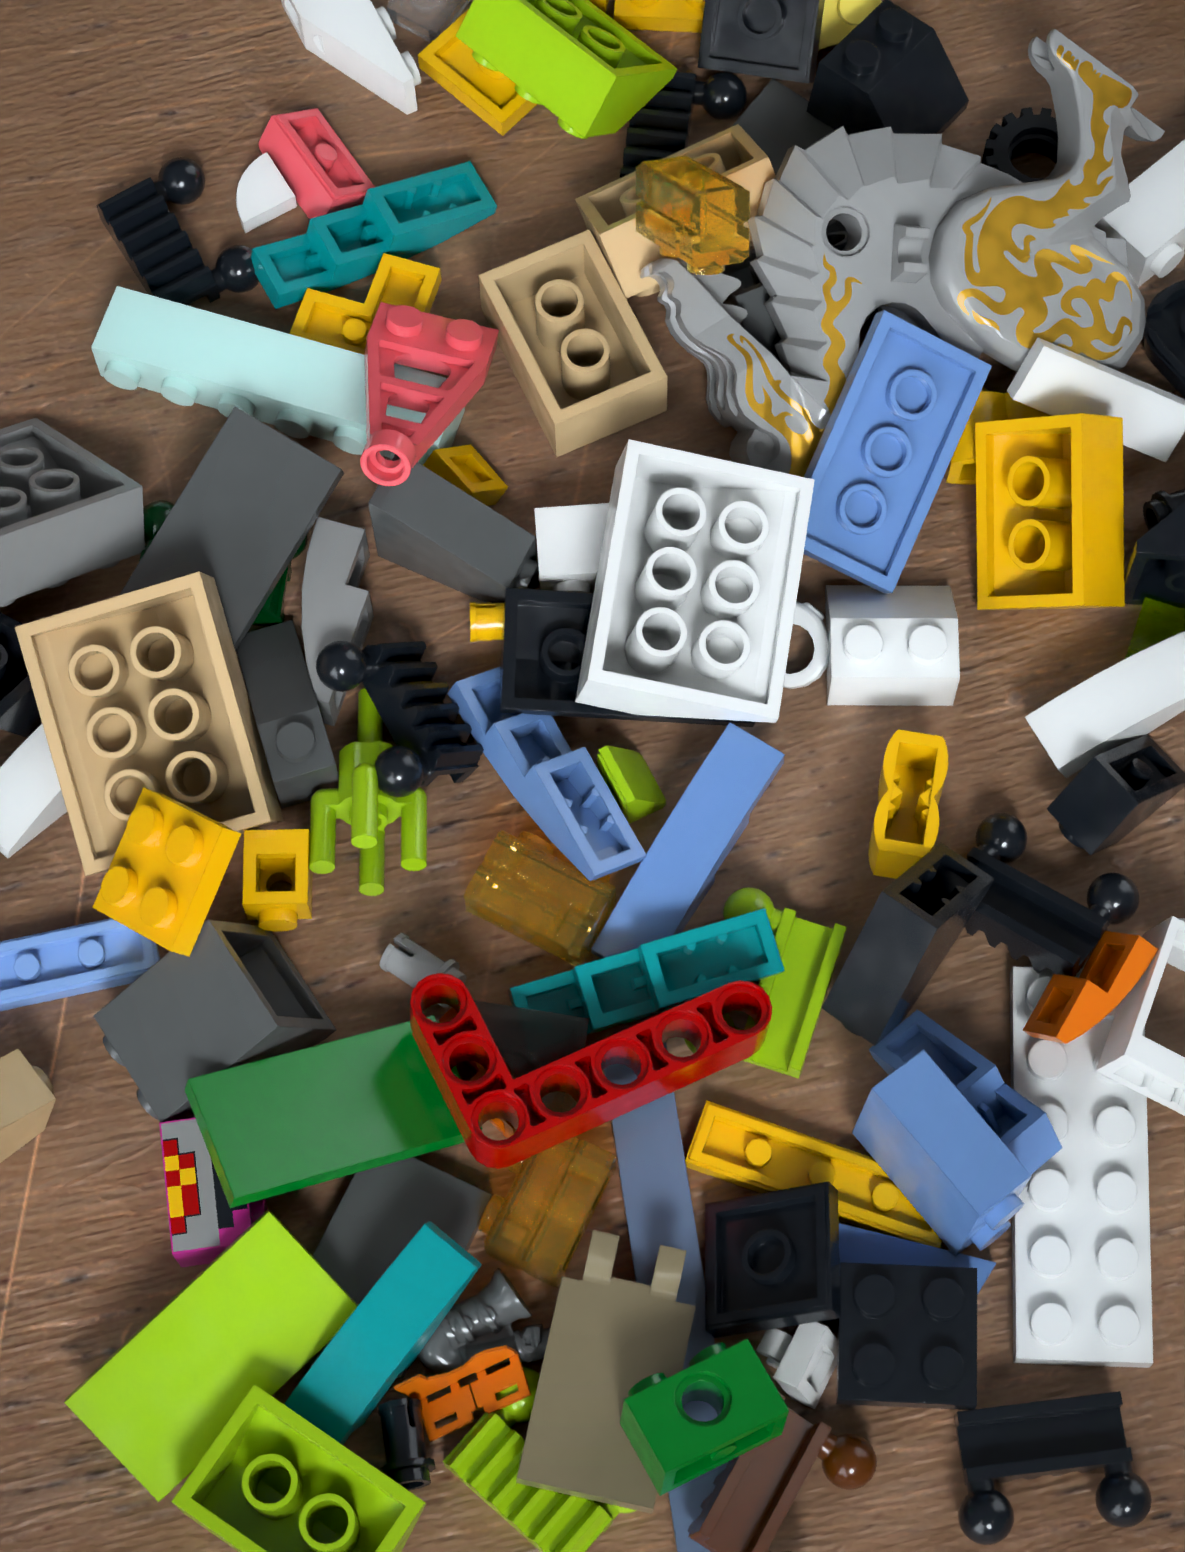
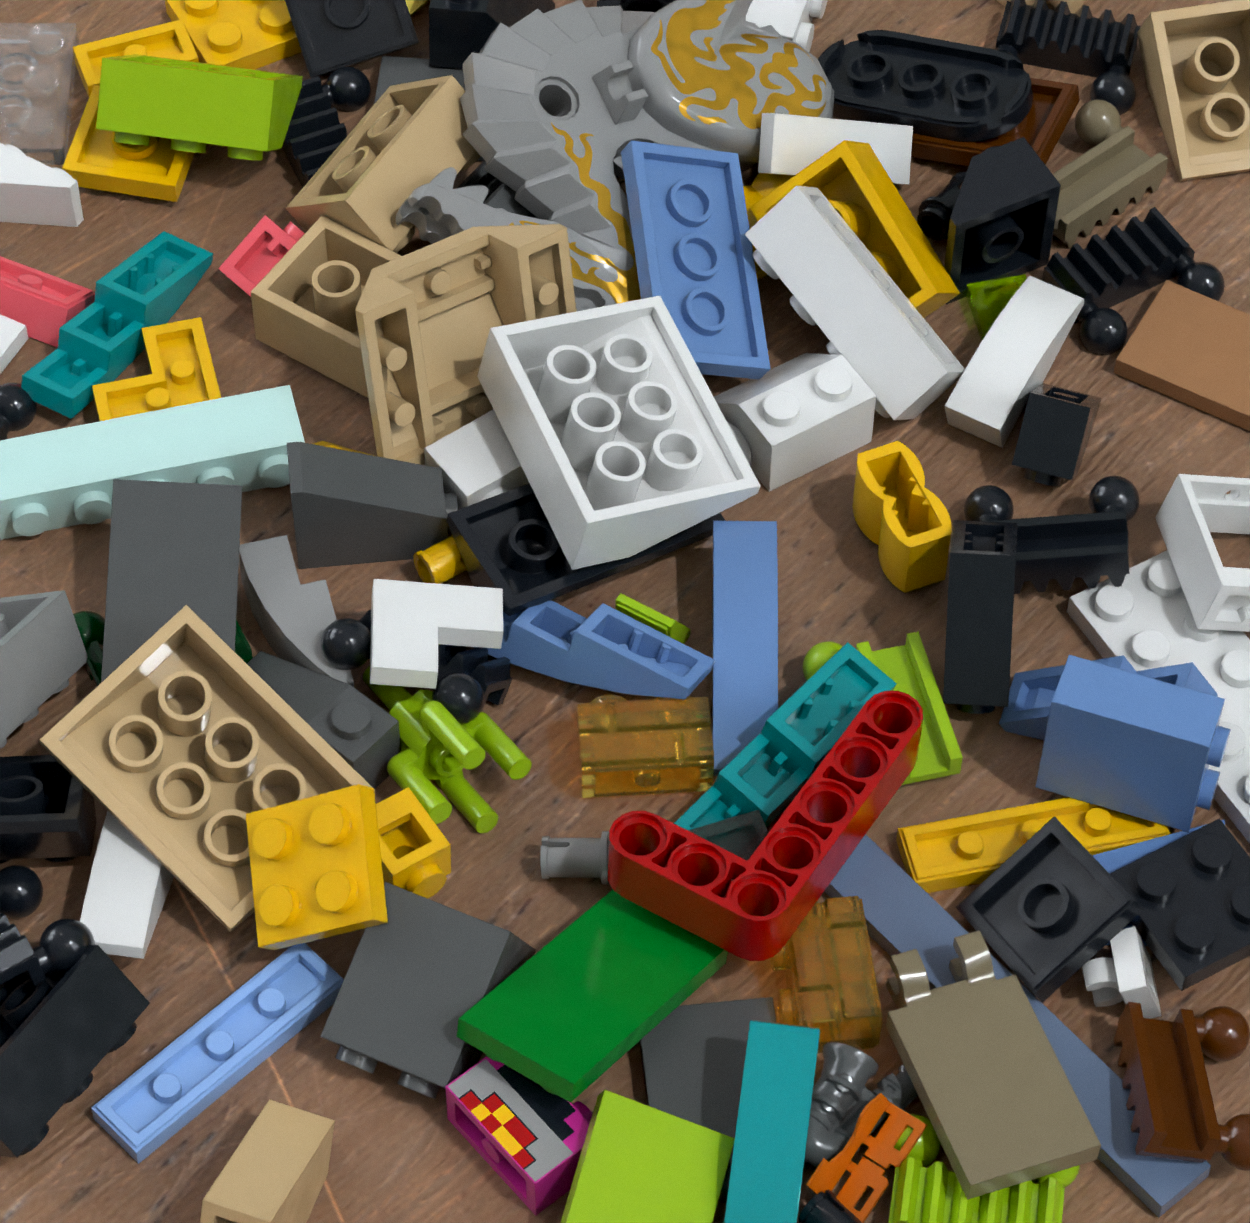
camera: 35 degrees left, 15 degrees down
(408, 675) = (418, 616): none -> white tile
(426, 343) = (261, 415): coral plate -> none
(533, 230) = (259, 253): none -> coral bracket
(593, 388) = (430, 320): none -> tan slope
(681, 1448) = (1092, 1037): green brick -> none
(692, 213) = (428, 132): clear yellow brick -> none
(1003, 572) = (853, 303): none -> white brick
(1077, 1004) = (1156, 564): orange slope -> none

